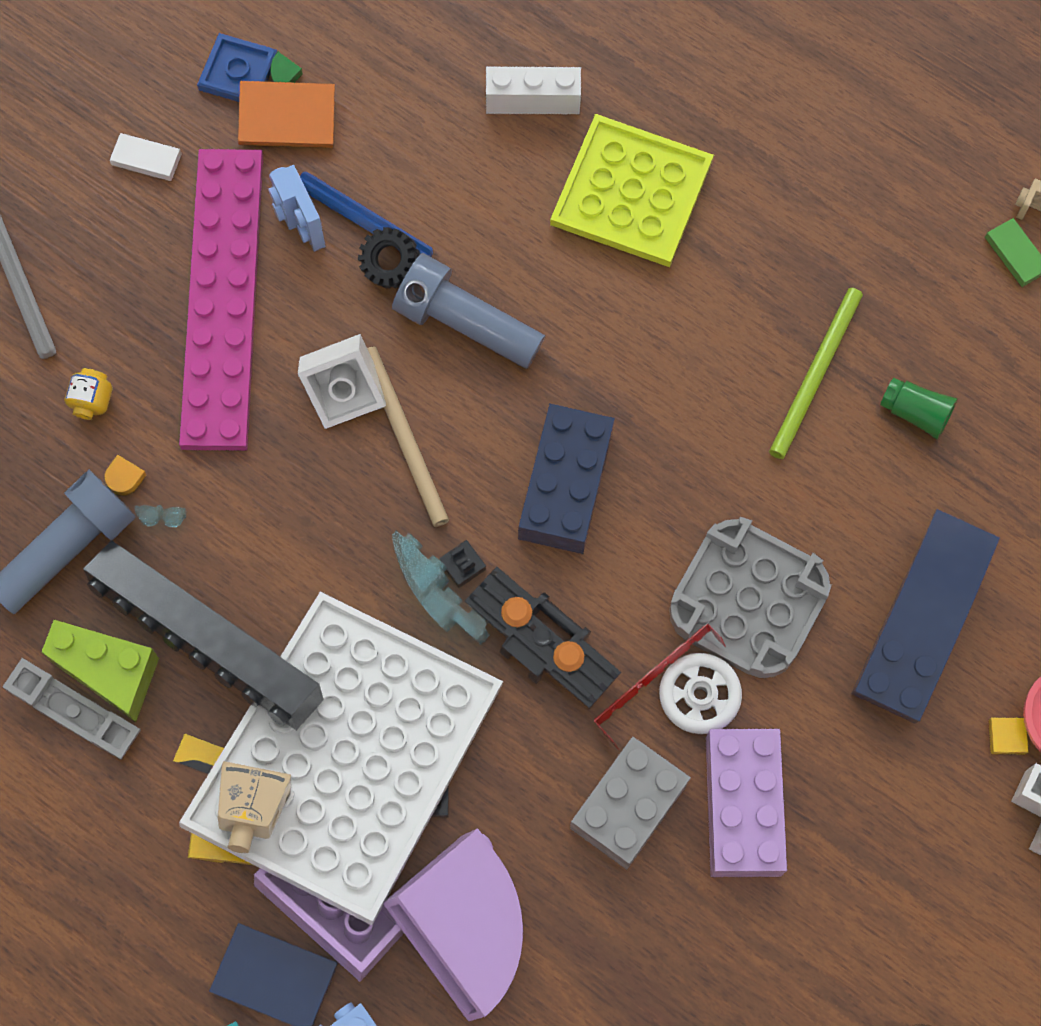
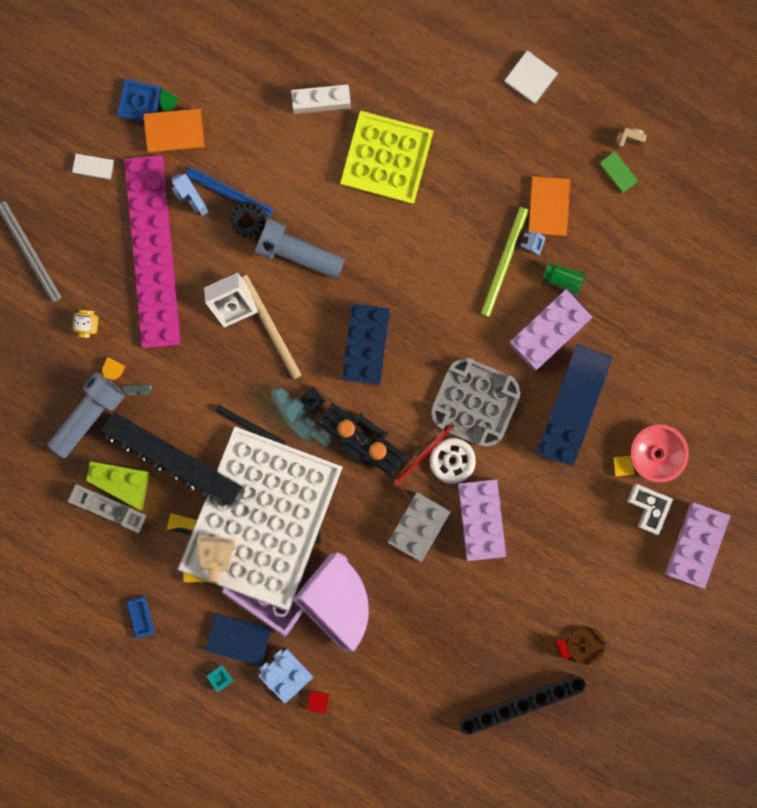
camera: 10 degrees left, 15 degrees up
(99, 916) = (140, 617): none -> blue tile
(342, 592) = (249, 425): none -> black bar
(870, 344) = (534, 243): none -> medium blue tile
(878, 96) = (531, 77): none -> white tile
(889, 487) = (550, 330): none -> lavender brick
(898, 293) = (549, 206): none -> orange tile

